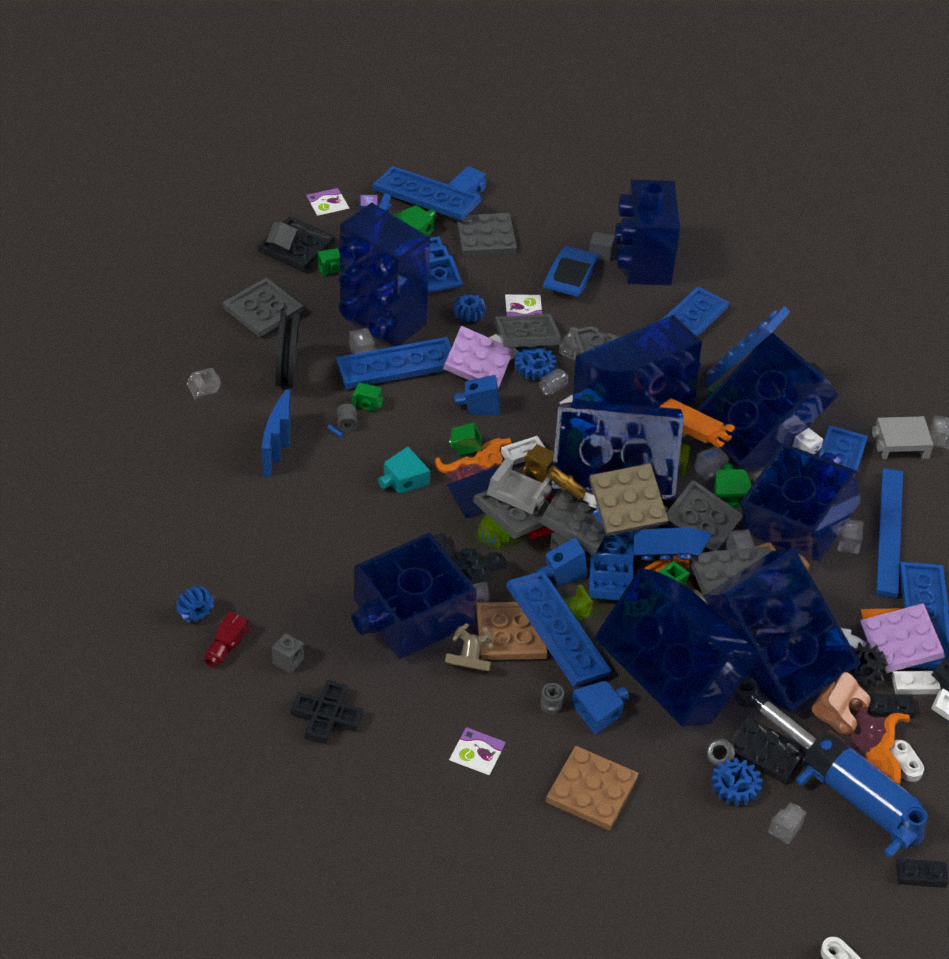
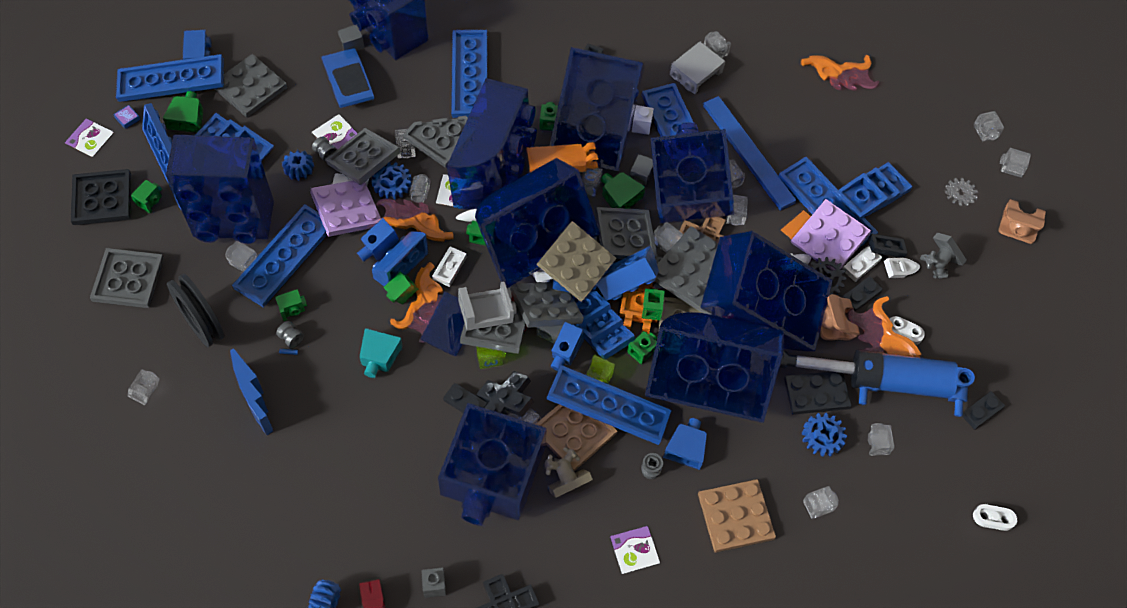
camera: 40 degrees left, 15 degrees up
(281, 235) = (85, 200): dark grey panel -> none
(490, 420) = (401, 258): none -> blue slope
(501, 307) = (323, 147): none -> dark grey wheel
(528, 398) = (411, 216): none -> piece
(538, 463) = (479, 275): pearl gold brick -> none
(566, 482) = (518, 278): pearl gold pin -> none
(680, 828) = (821, 502): none -> clear brick
(717, 743) = (787, 415): dark grey piece -> none
(745, 345) = (553, 64): blue plate -> none
(830, 565) = (740, 211): none -> clear brick

